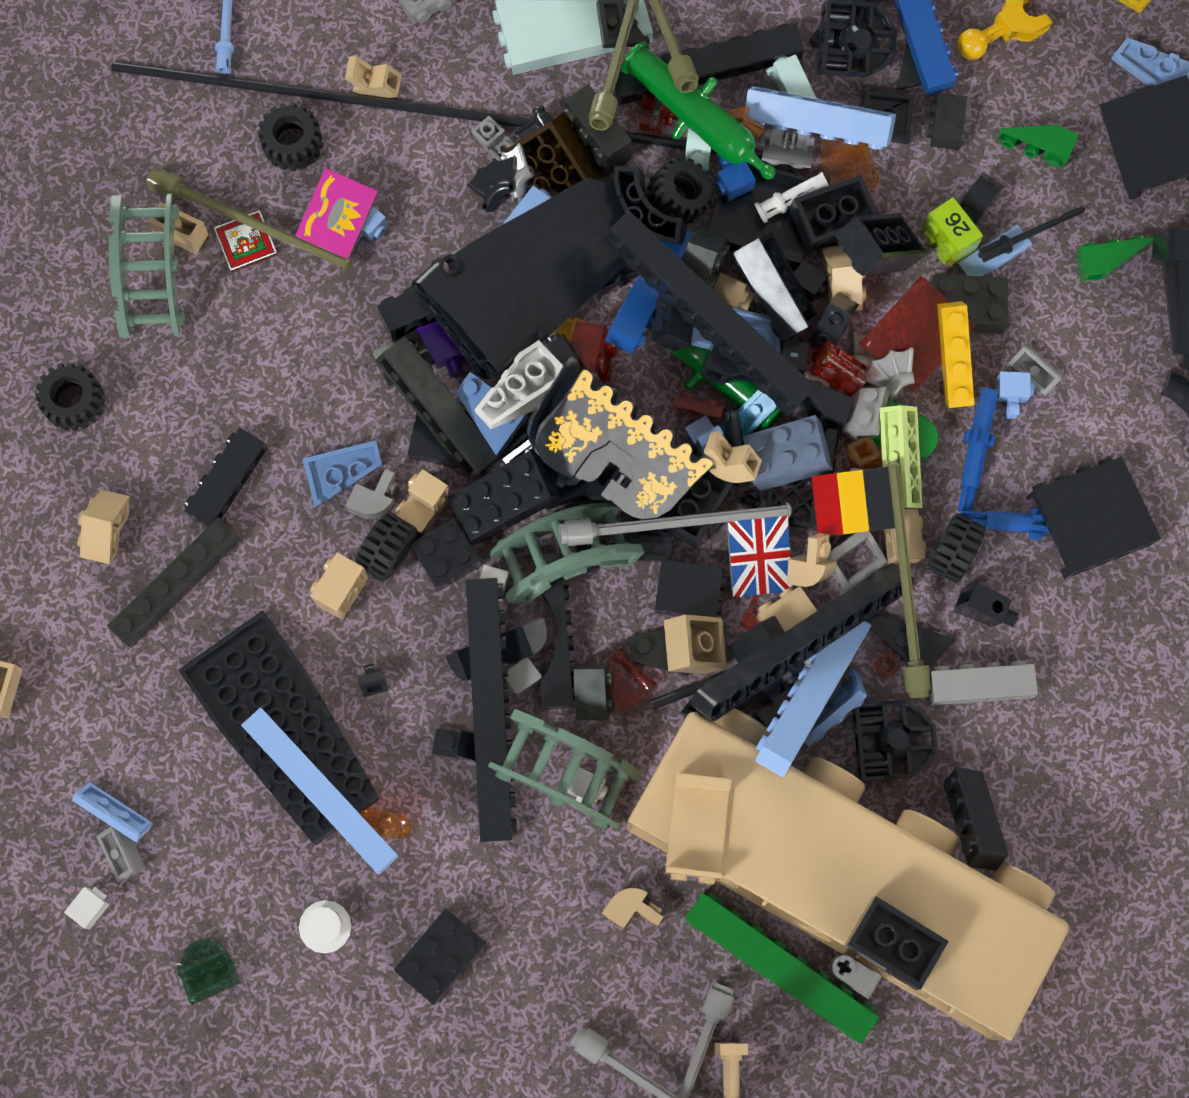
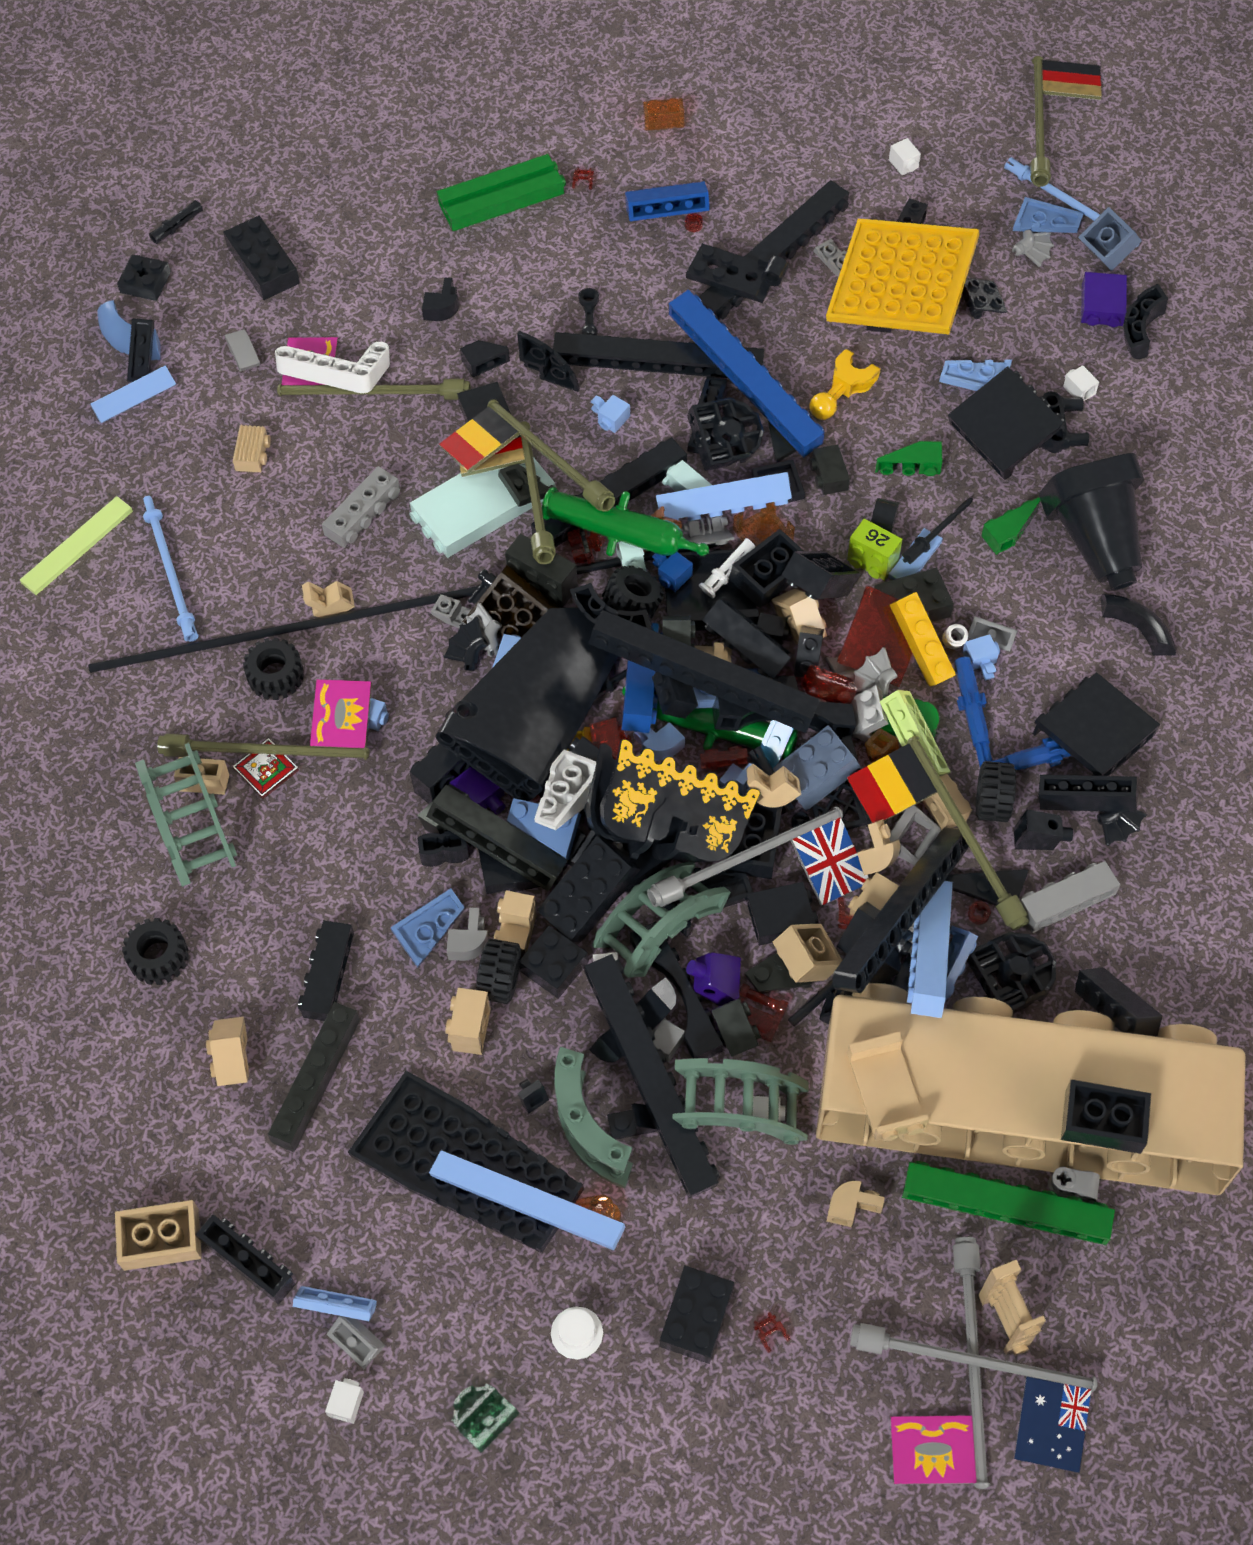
camera: 20 degrees left, 15 degrees down
(45, 738) = (246, 1259): none -> black brick
(377, 395) = (441, 848): none -> black brick
(399, 727) = (589, 1142): none -> sand green fence
(513, 996) = (777, 1326): none -> clear red piece
(595, 633) = (716, 977): none -> dark purple torso
(646, 365) = (664, 743): none -> light blue brick
(999, 366) = (958, 630): none -> white brick
(1051, 585) = (1088, 793): none -> black brick
(1073, 622) = (1119, 825): none -> black arm

